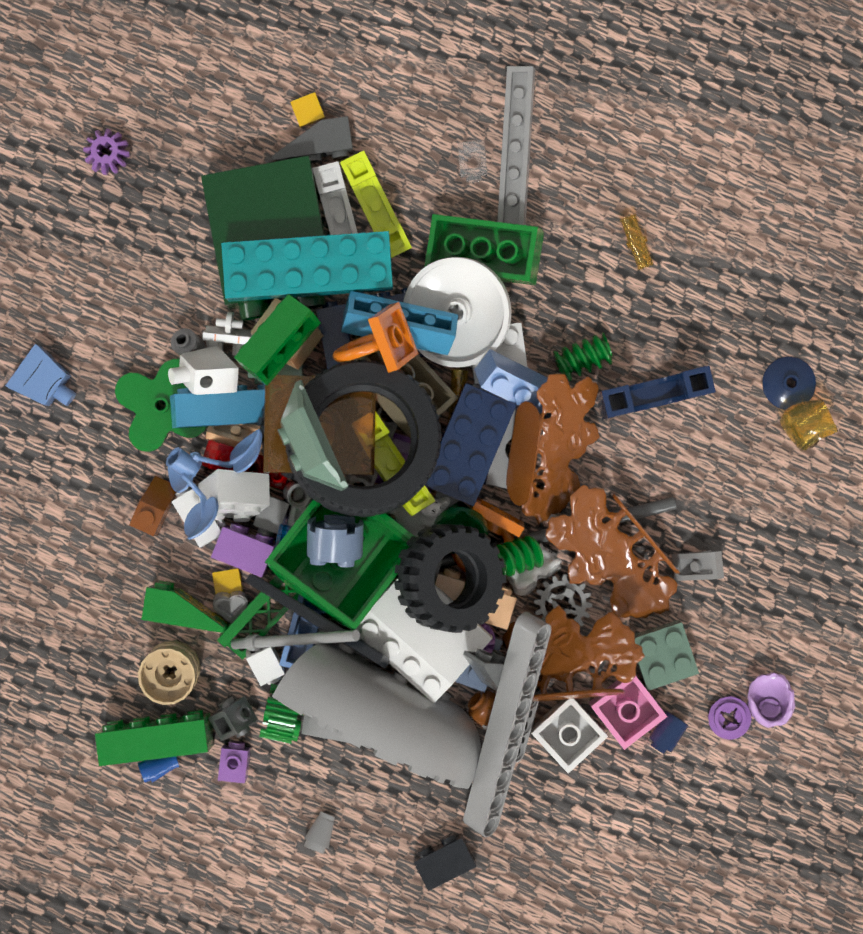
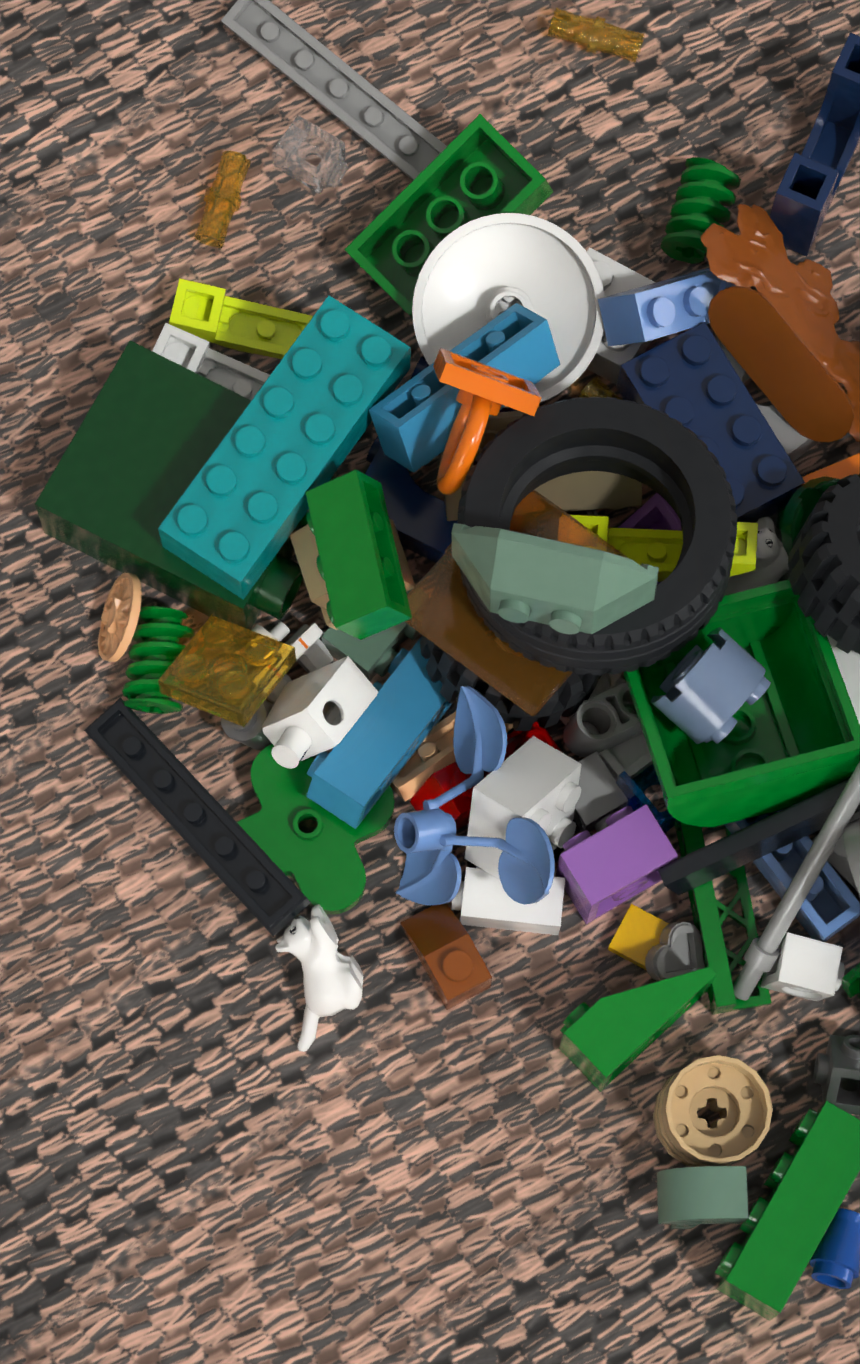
camera: 60 degrees left, 15 degrees down
(41, 378) = (130, 971): medium blue torso -> none
(104, 464) = (329, 978): none -> white animal
(127, 354) = (197, 817): none -> black tile
(127, 695) = (702, 1196): none -> sand green brick
(183, 283) = (152, 655): none -> green piece
(189, 250) = (120, 617): none -> light nougat wheel
(197, 318) = (227, 670): none -> clear yellow plate
(307, 110) = (58, 321): yellow tile -> none
(323, 139) = (119, 312): dark grey slope -> none
(422, 136) = (222, 199): none -> clear yellow pin

